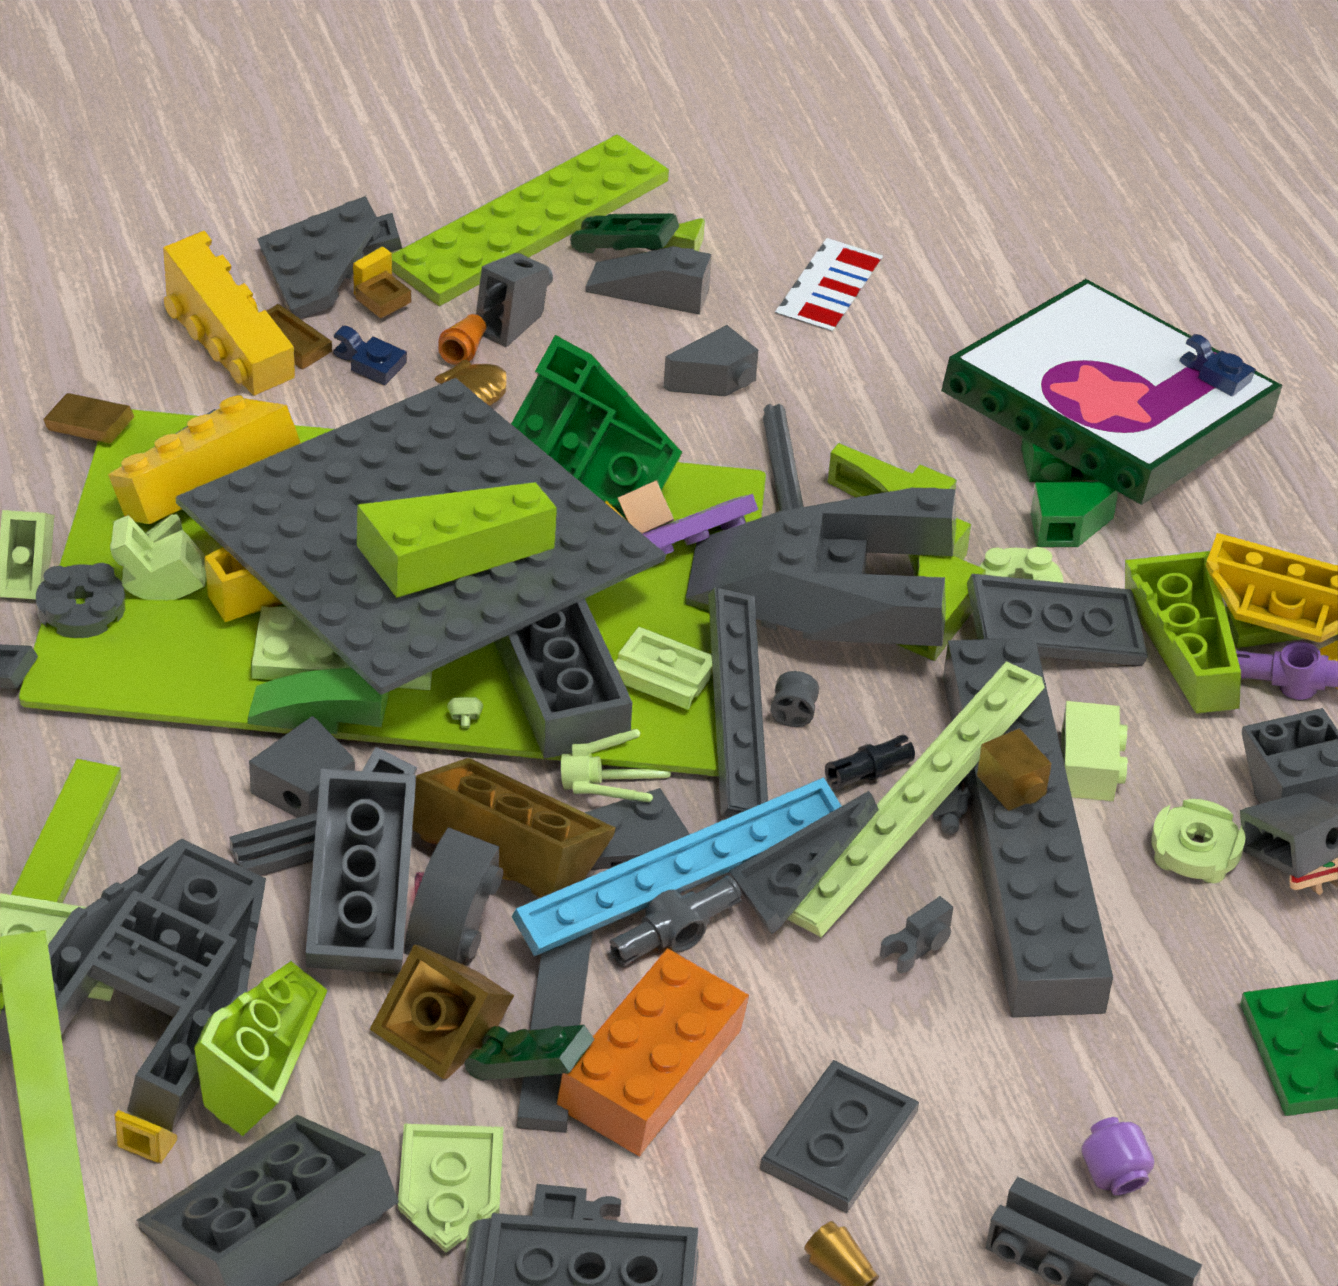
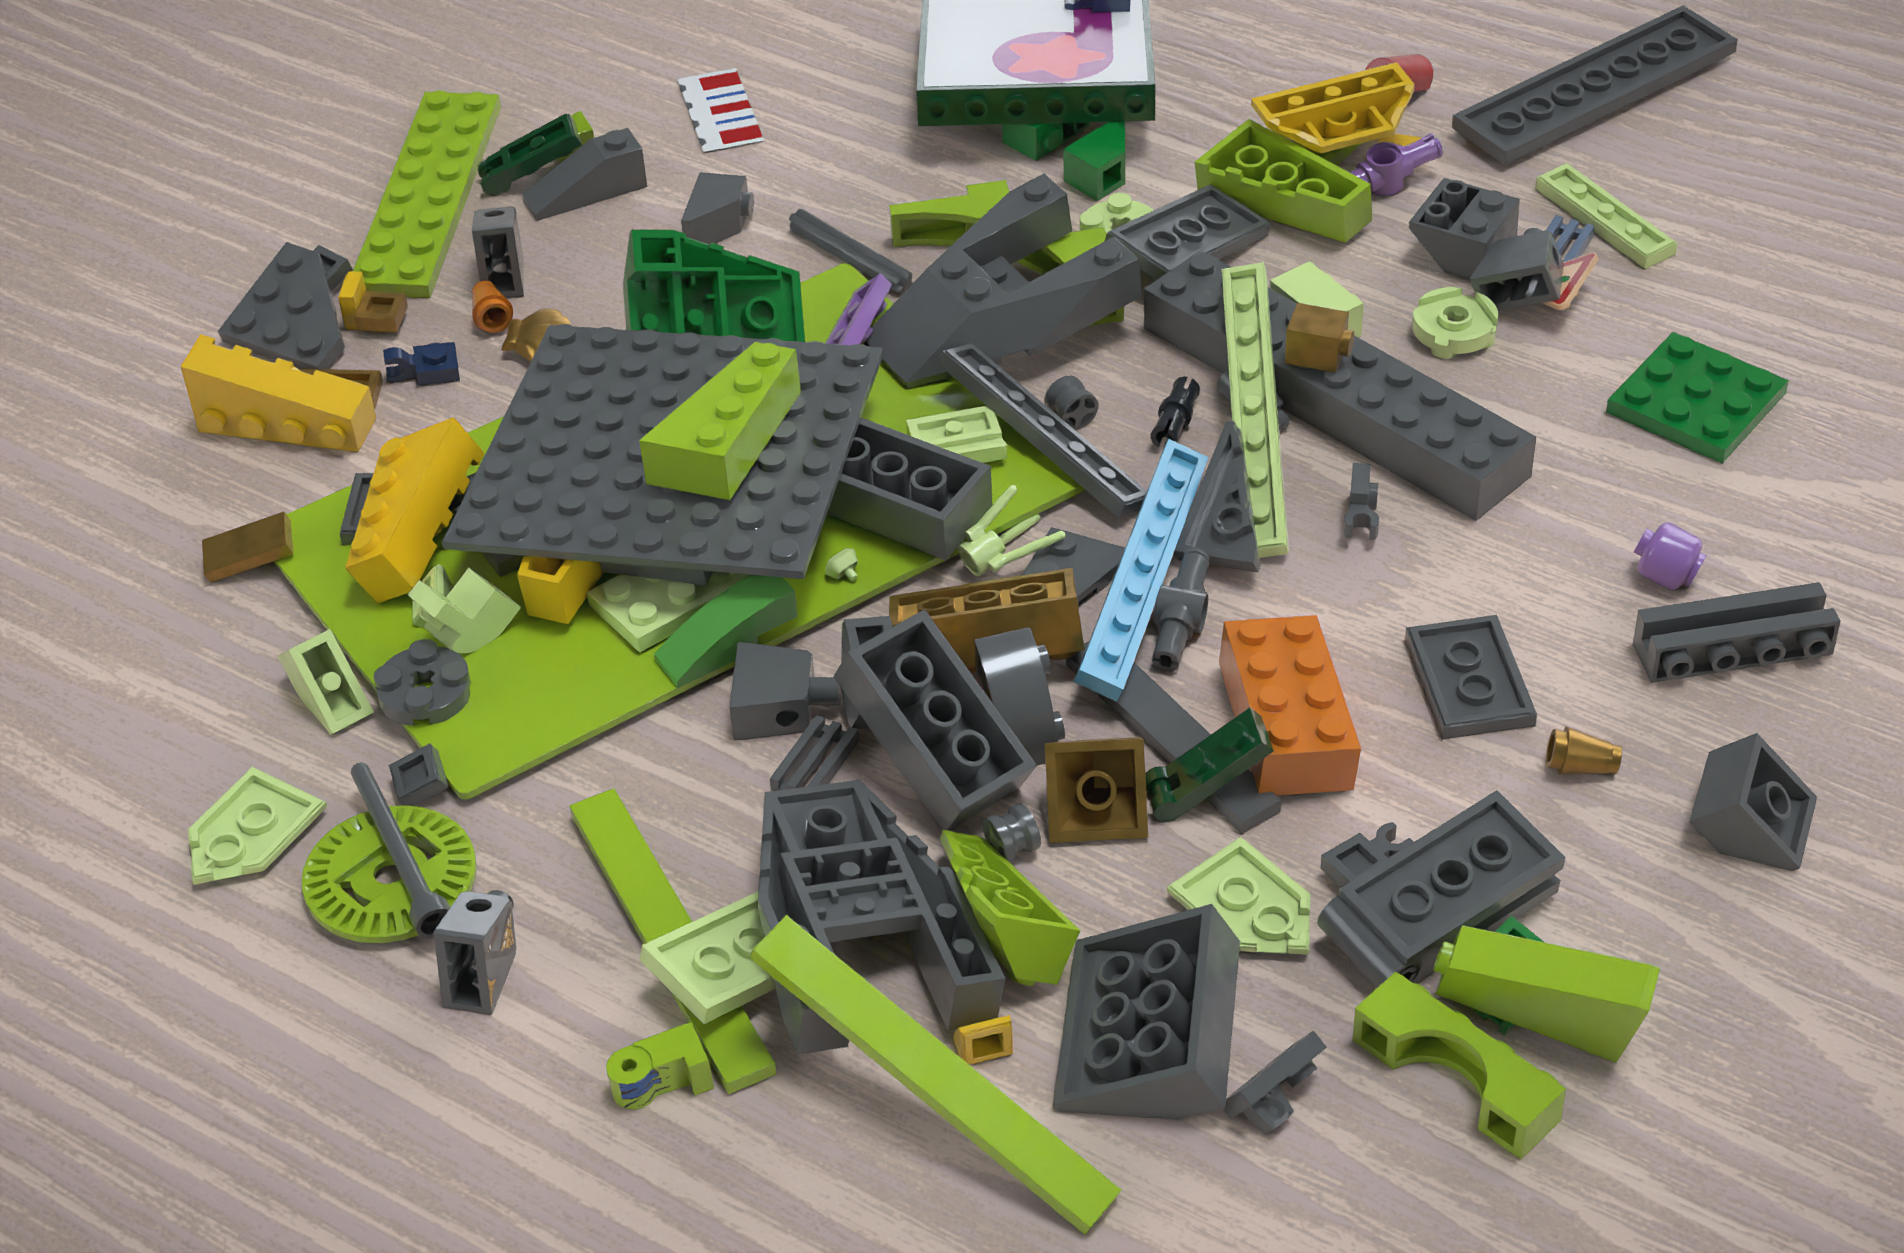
camera: 35 degrees left, 0 degrees up
(340, 1000) = (1012, 832): none -> dark grey wheel
(646, 508) = (806, 327): light nougat tile -> none

